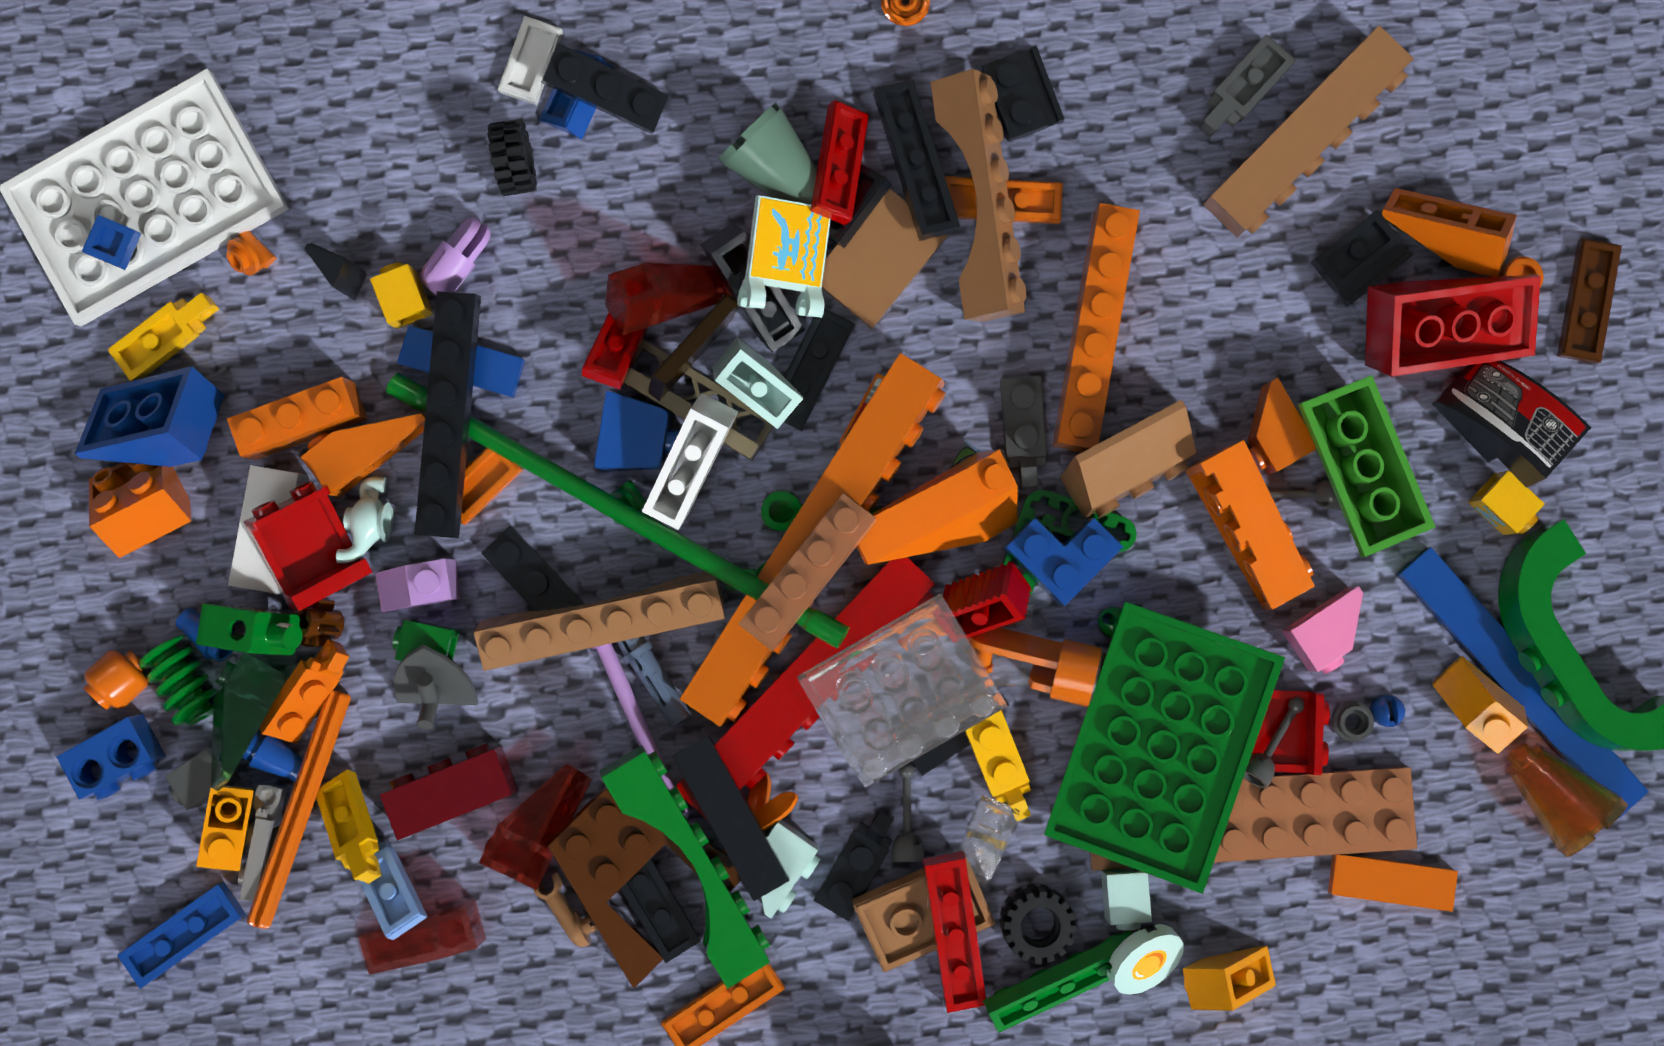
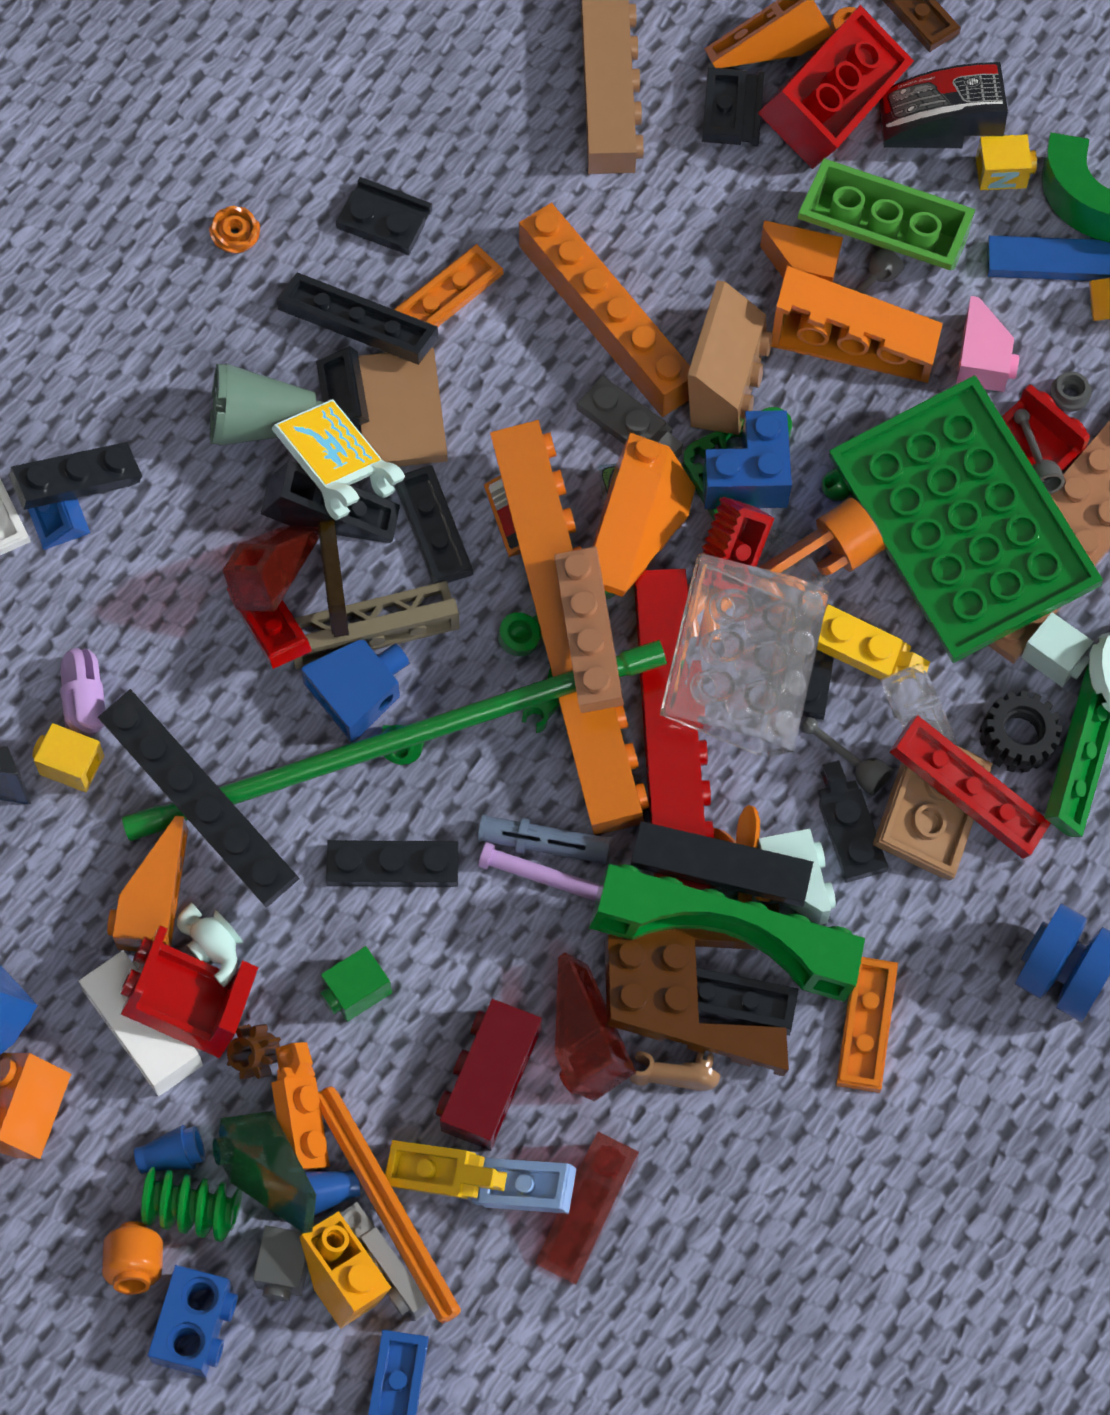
camera: 55 degrees left, 20 degrees down
(266, 629) = (210, 1090): green torso -> none
(297, 418) = (78, 919): orange brick -> none
(418, 585) = (301, 949): lavender slope -> none
(431, 680) = (390, 1002): dark grey shield -> none
(484, 481) = (274, 821): orange tile -> none
(493, 369) = (129, 784): blue tile -> none
(512, 157) = (55, 579): black tyre -> none
(553, 632) = (470, 834): medium nougat arch -> none
(689, 461) = (418, 648): white brick -> none
(756, 383) = (404, 562): light aqua slope -> none
(839, 162) = (304, 366): red tile -> none
(991, 276) = (495, 342): medium nougat arch -> none
(1246, 85) = (533, 74): dark grey hinge -> none
(1381, 710) = (1082, 362): blue hinge -> none

